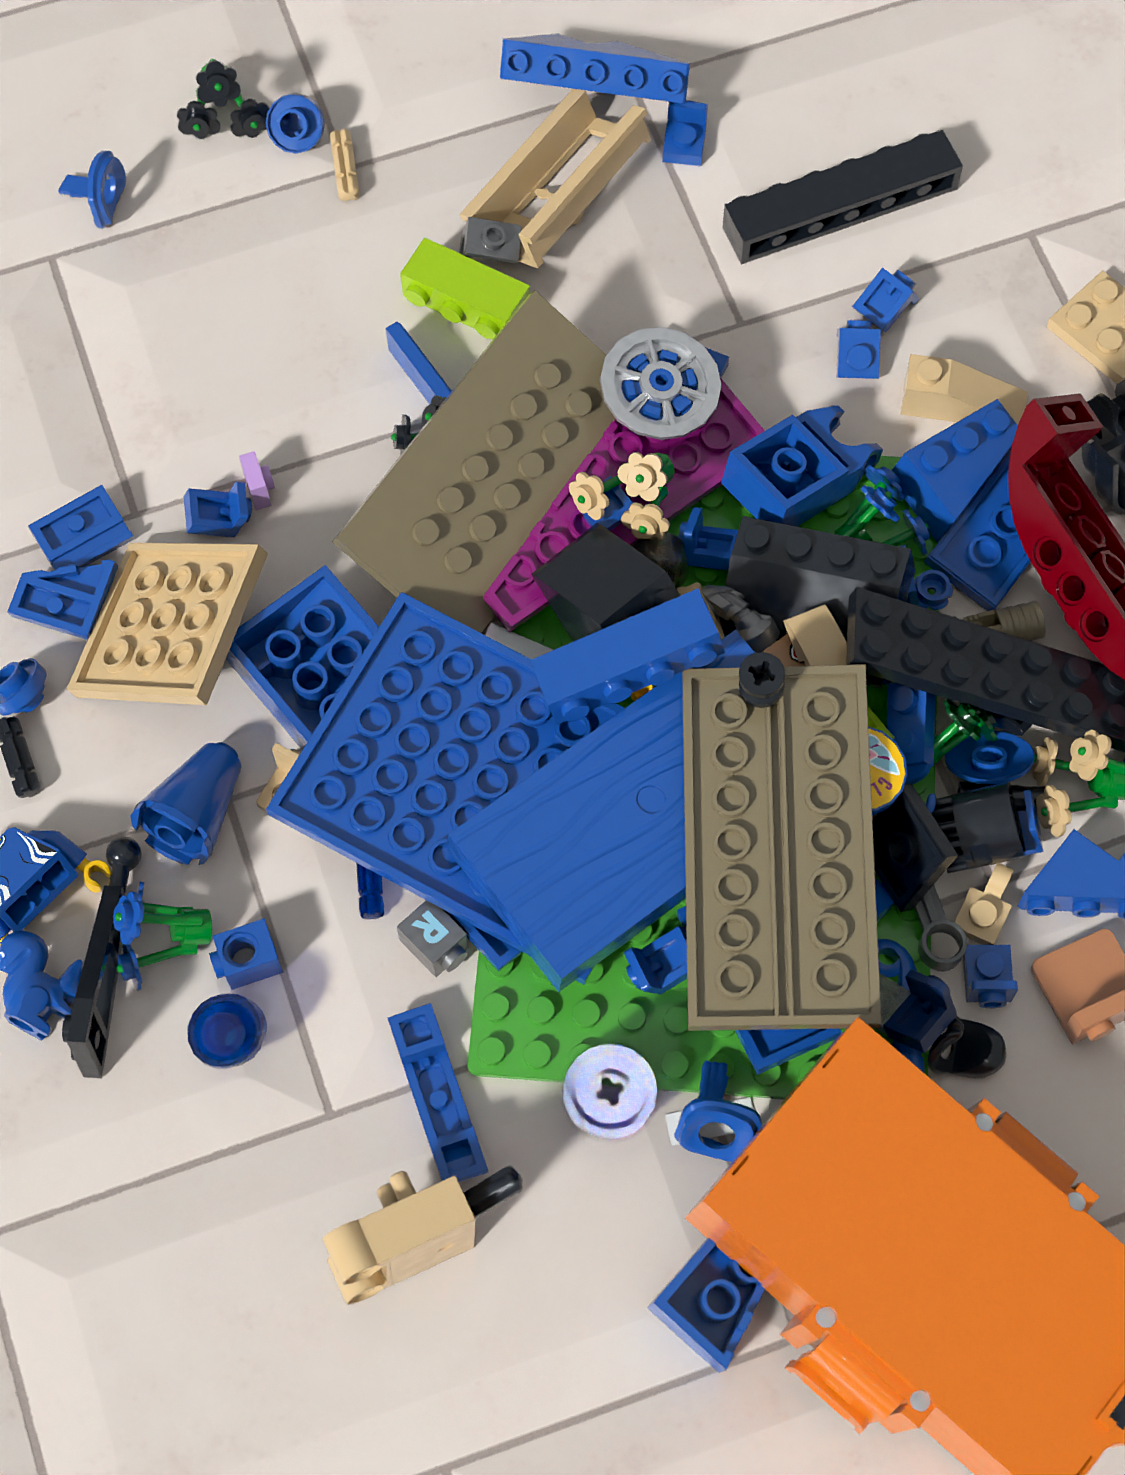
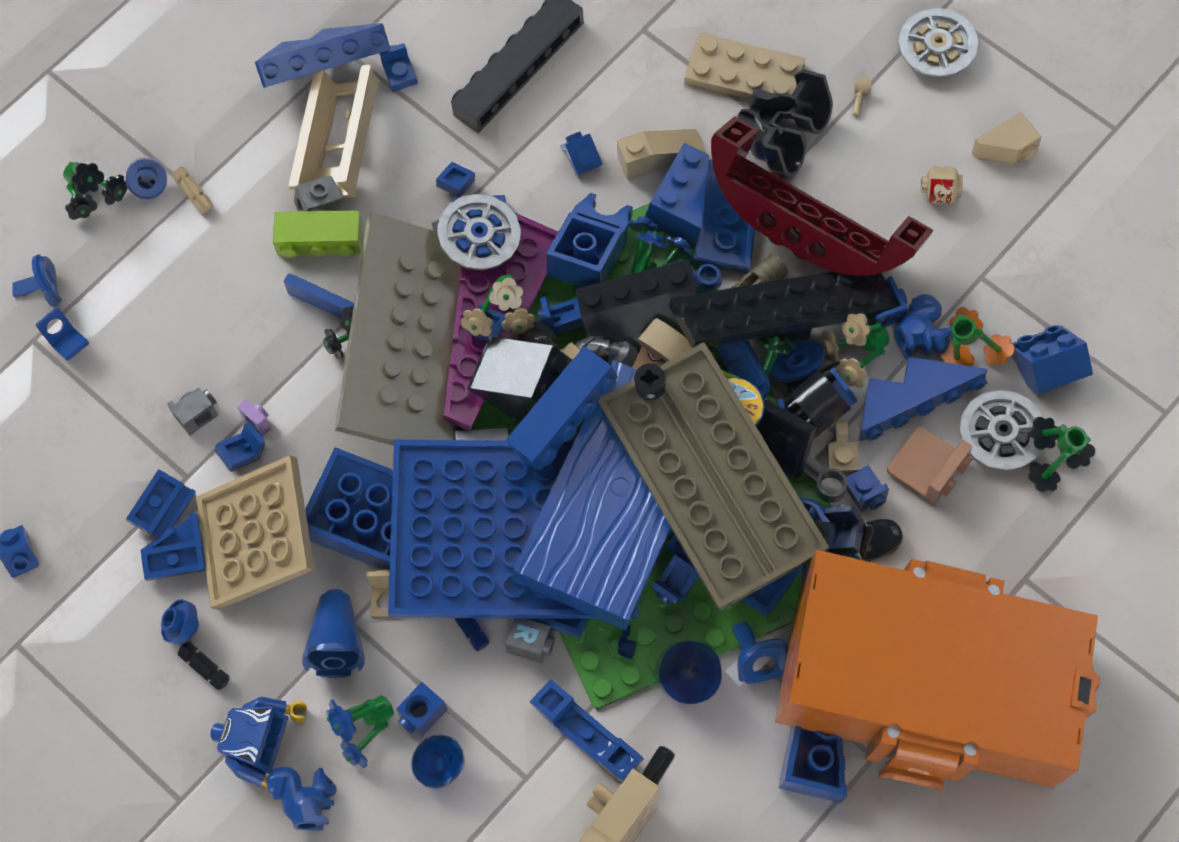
camera: 25 degrees left, 0 degrees up
(88, 275) = (67, 340): none -> blue bracket
(91, 1016) = (350, 805): black plate -> none
(188, 435) = (194, 410): none -> flat silver brick
(550, 1013) = (626, 647): none -> hand
(676, 307) = (455, 179): none -> blue plate
(886, 298) = (580, 112): blue bracket -> none

